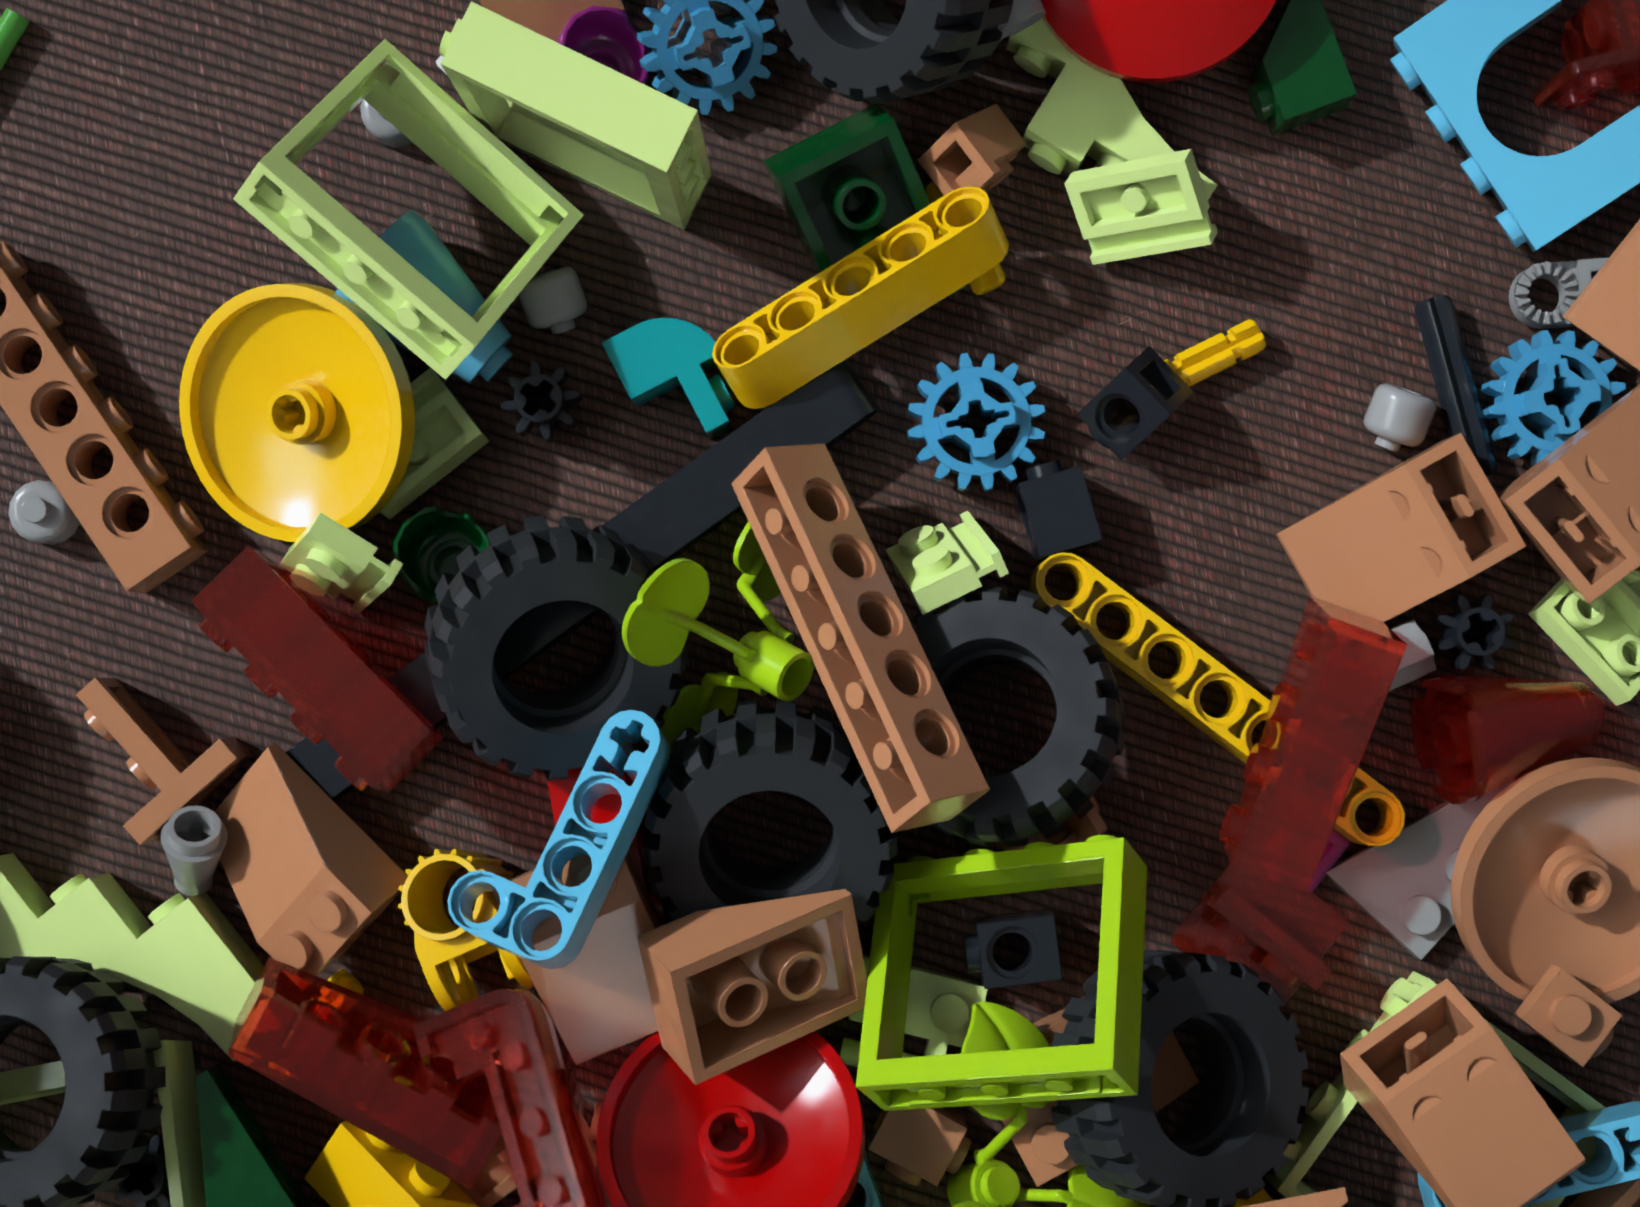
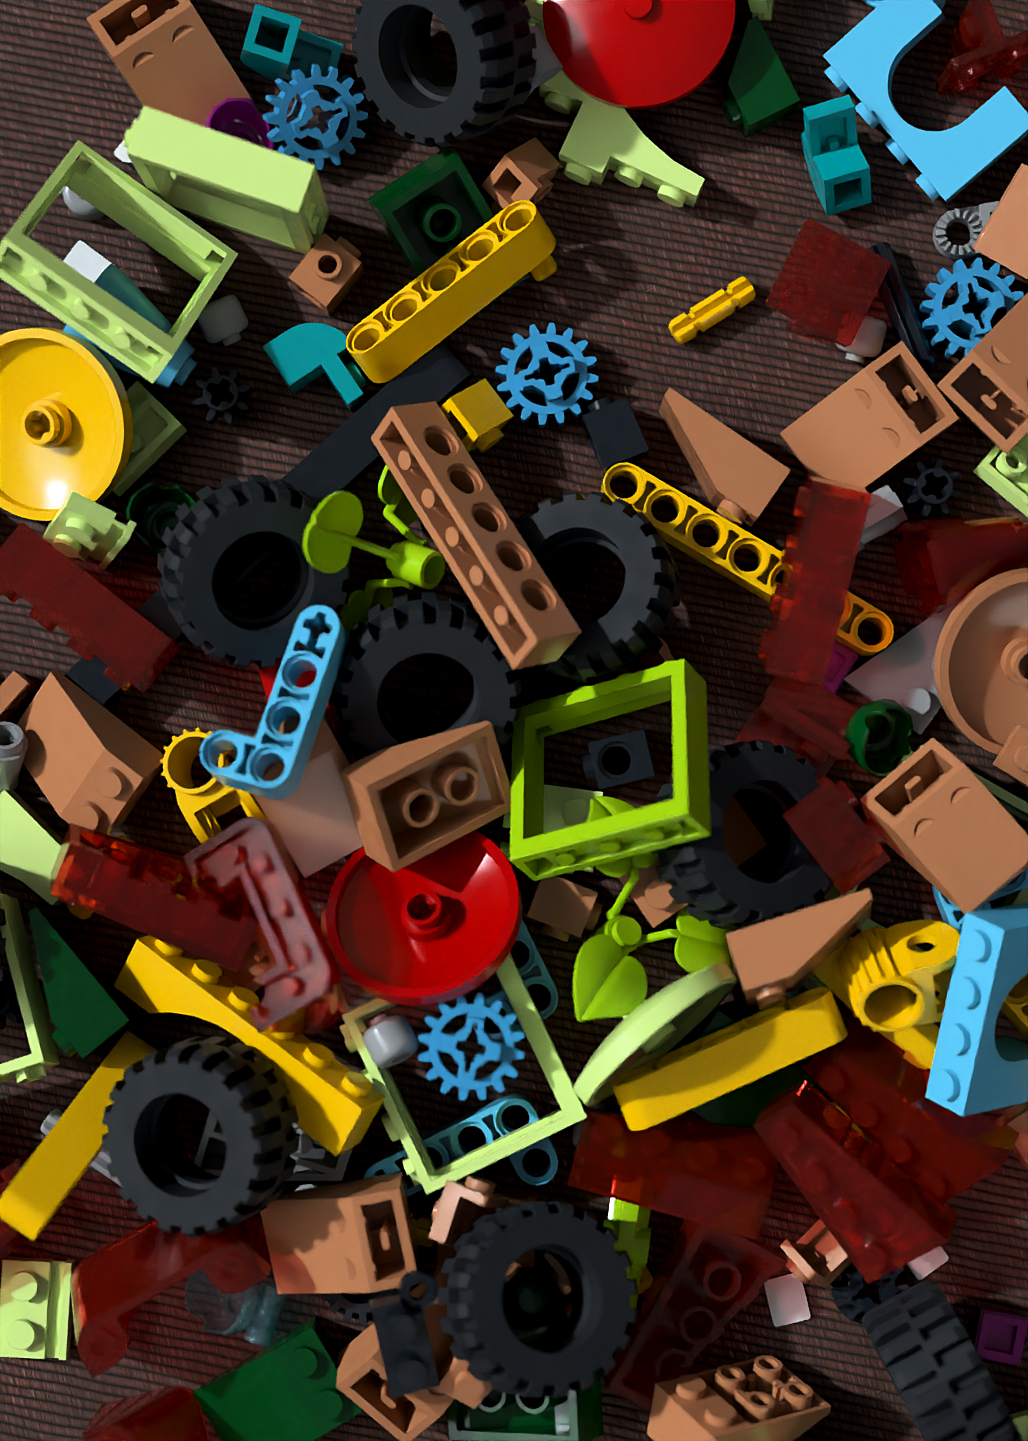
camera: 10 degrees left, 0 degrees up
(378, 204) = (86, 261): none -> white sticker
(700, 252) = (328, 273): none -> nougat brick
(877, 467) = (477, 416): none -> yellow brick
(944, 563) = (532, 480): yellowish green plate -> none
(1141, 207) = (650, 201): yellowish green plate -> none
(1150, 387) = (672, 334): black brick -> none
(1203, 573) = (727, 466): none -> nougat slope
(1303, 1100) = (836, 835): none -> clear red bracket
(1366, 344) = (827, 284): none -> clear red bracket
(1366, 957) = (879, 735): none -> dark green hair
(1390, 173) = (834, 156): none -> teal brick

